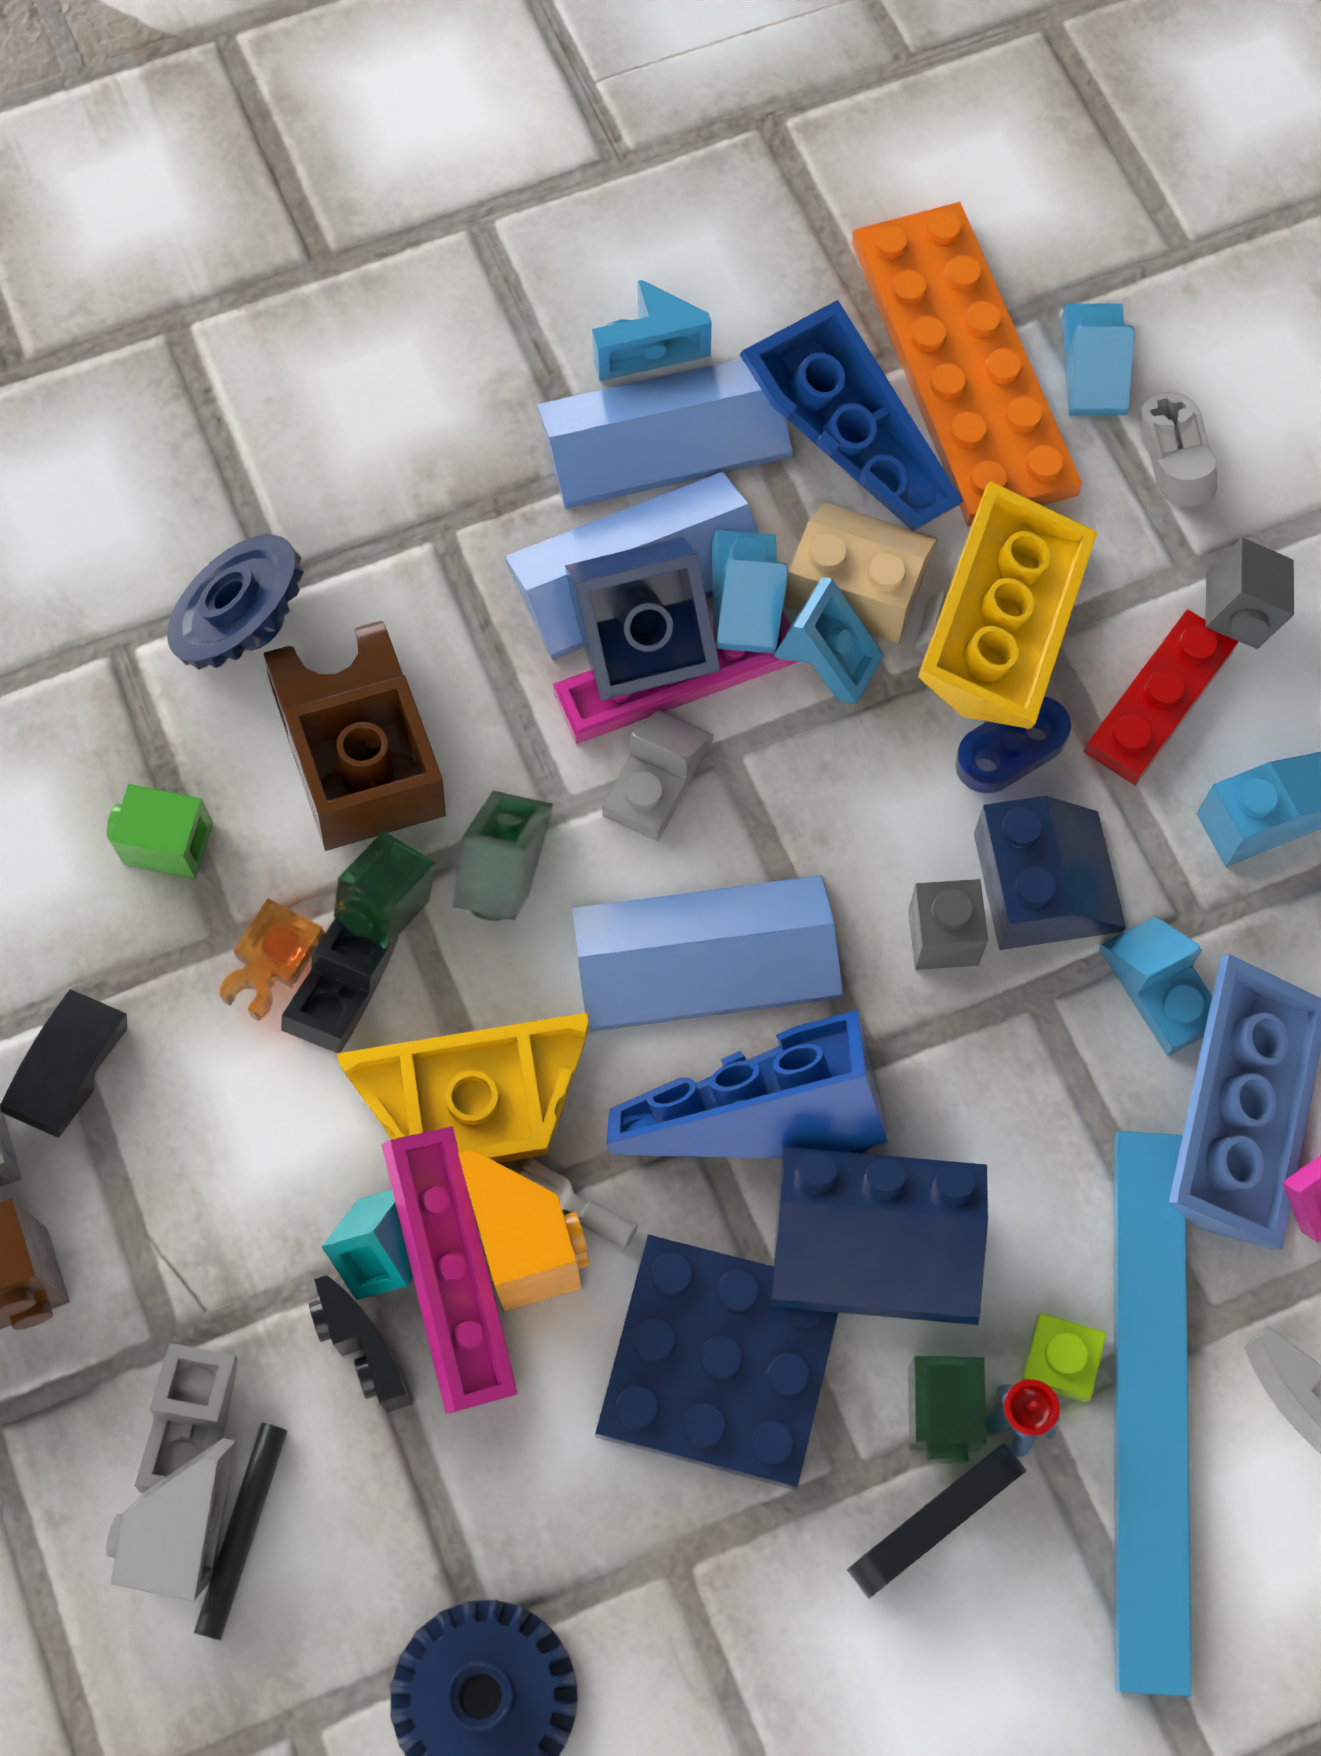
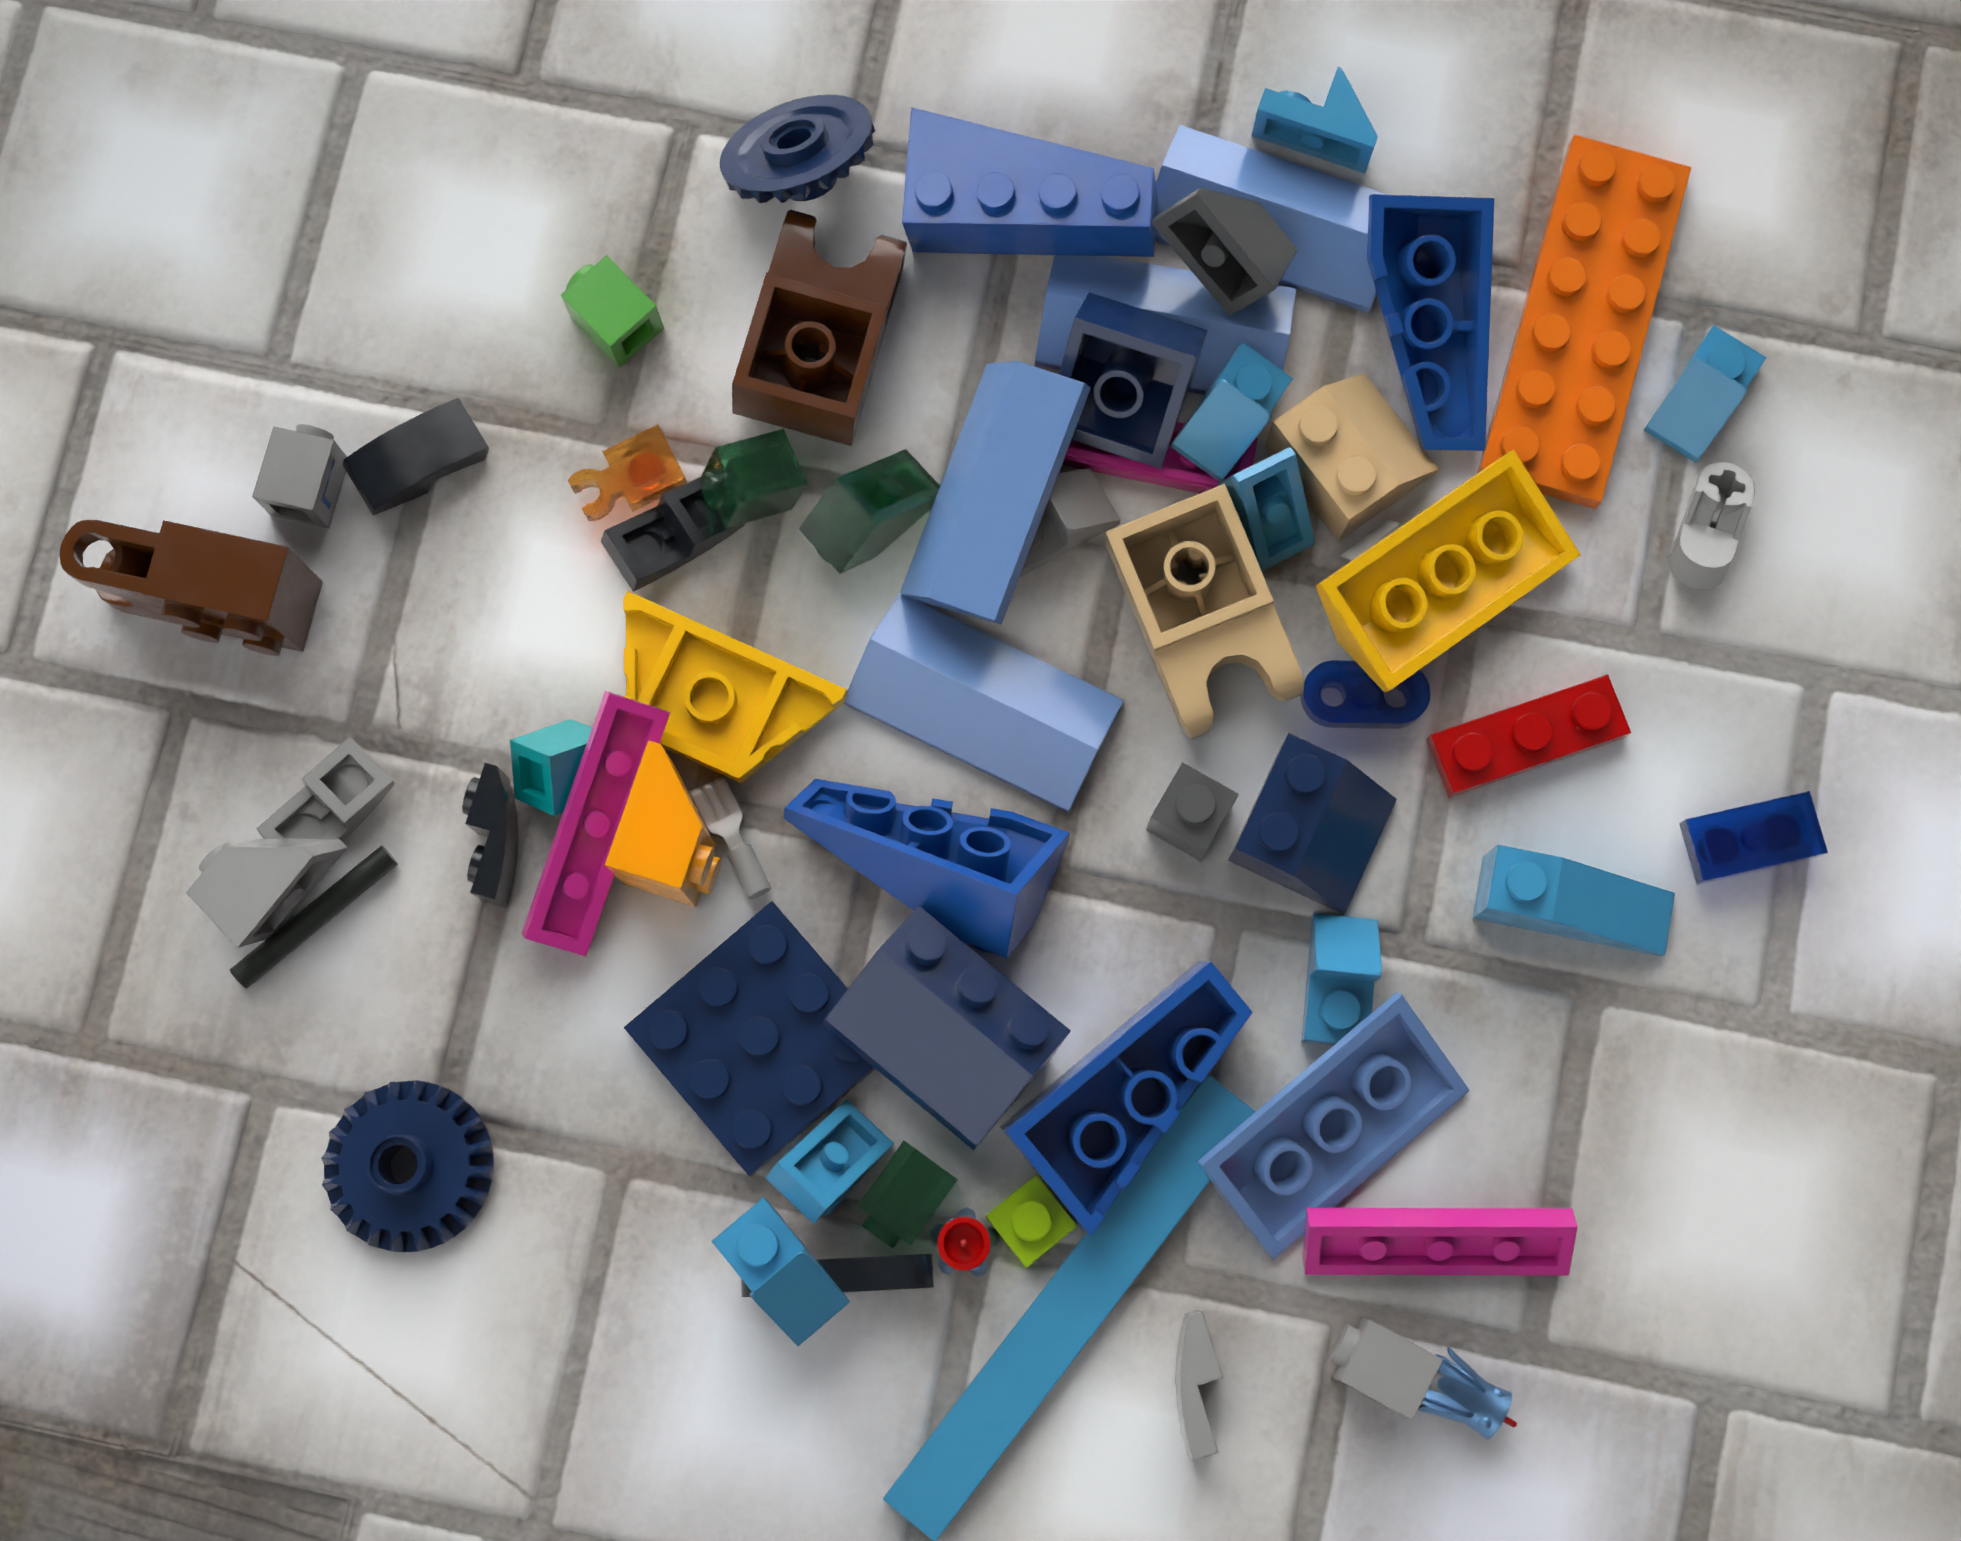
camera: 35 degrees right, 10 degrees up
(453, 525) = (1020, 194): none -> wedge
(598, 769) = (995, 490): none -> medium blue slope
(653, 461) = (1227, 245): none -> dark grey slope
(854, 758) = (1205, 624): none -> tan brick
(861, 1423) = (829, 1161): none -> dark azure slope
(894, 1544) = (780, 1272): none -> dark azure slope
(1063, 1204) = (1120, 1098): none -> blue wedge
(1250, 593) = (1668, 698): dark grey brick -> none

